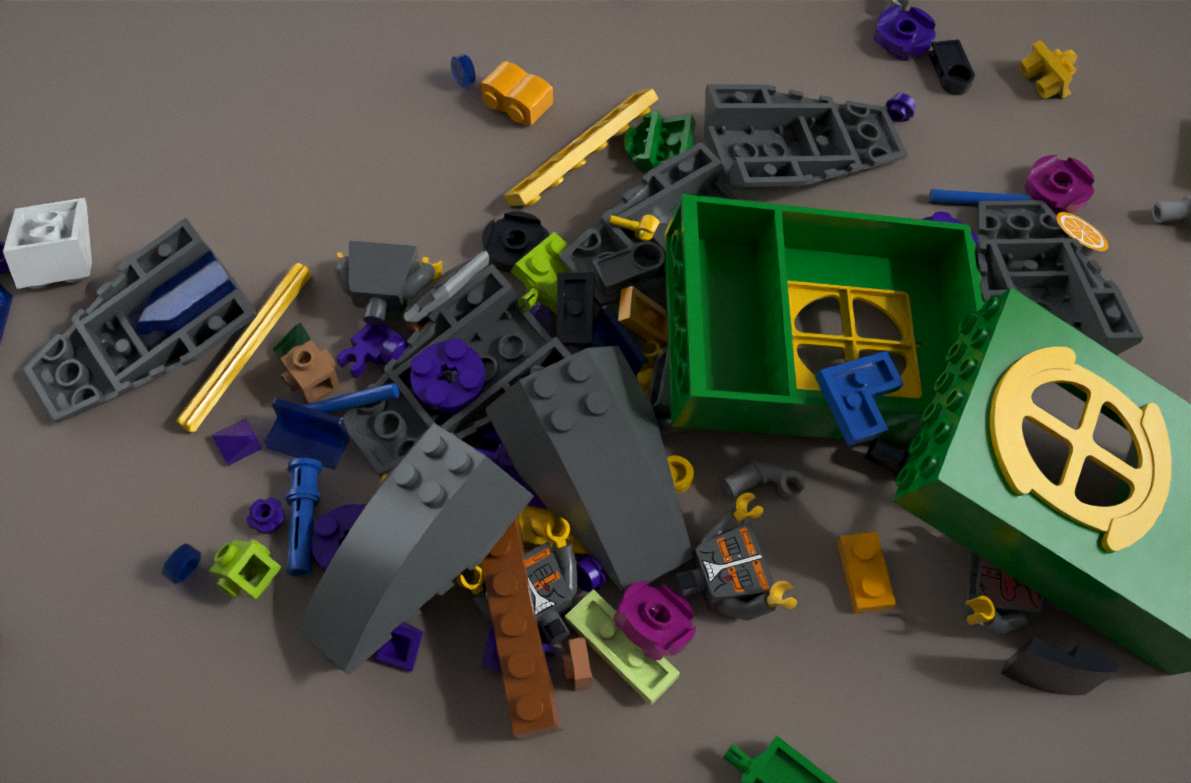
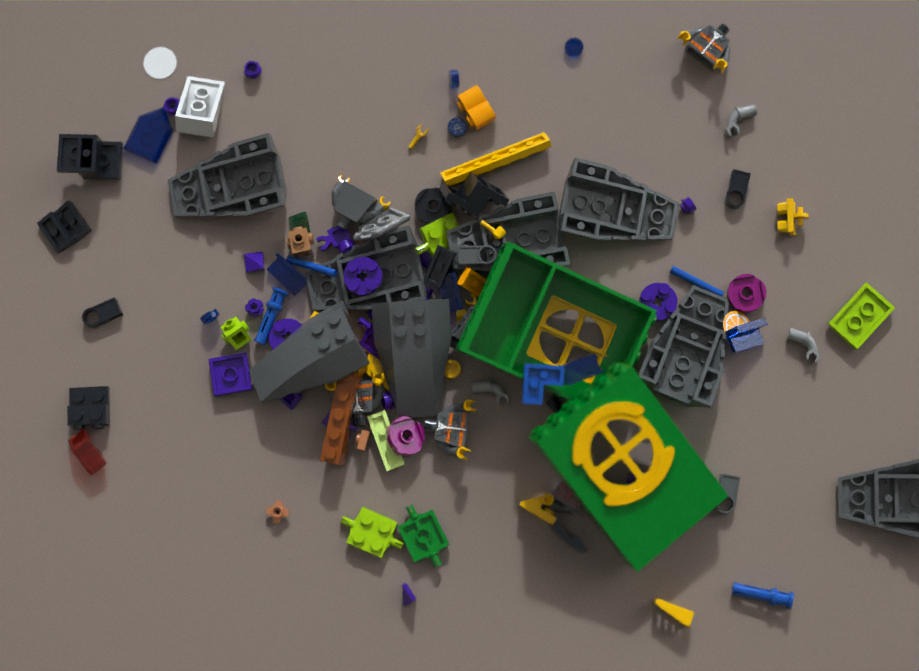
camera: 30 degrees right, 20 degrees up
(126, 163) = (252, 65): none -> dark purple plate
(186, 296) = (256, 176): clear blue tile -> none
(243, 348) = (271, 214): yellow axle -> none
(261, 655) = (230, 374): none -> dark purple plate
(443, 161) = (419, 134): none -> yellow hand
(499, 130) = (457, 127): none -> dark blue tile
(576, 190) = (473, 195): none -> black bracket
(658, 139) = (540, 174): green slope -> none
(866, 572) = (514, 455): light orange plate -> none
(905, 45) = (719, 163): dark purple plate -> none
(913, 354) = (581, 369): none -> clear blue panel
(960, 646) = (534, 507): none -> yellow slope
(1099, 234) = (746, 335): none -> clear blue panel

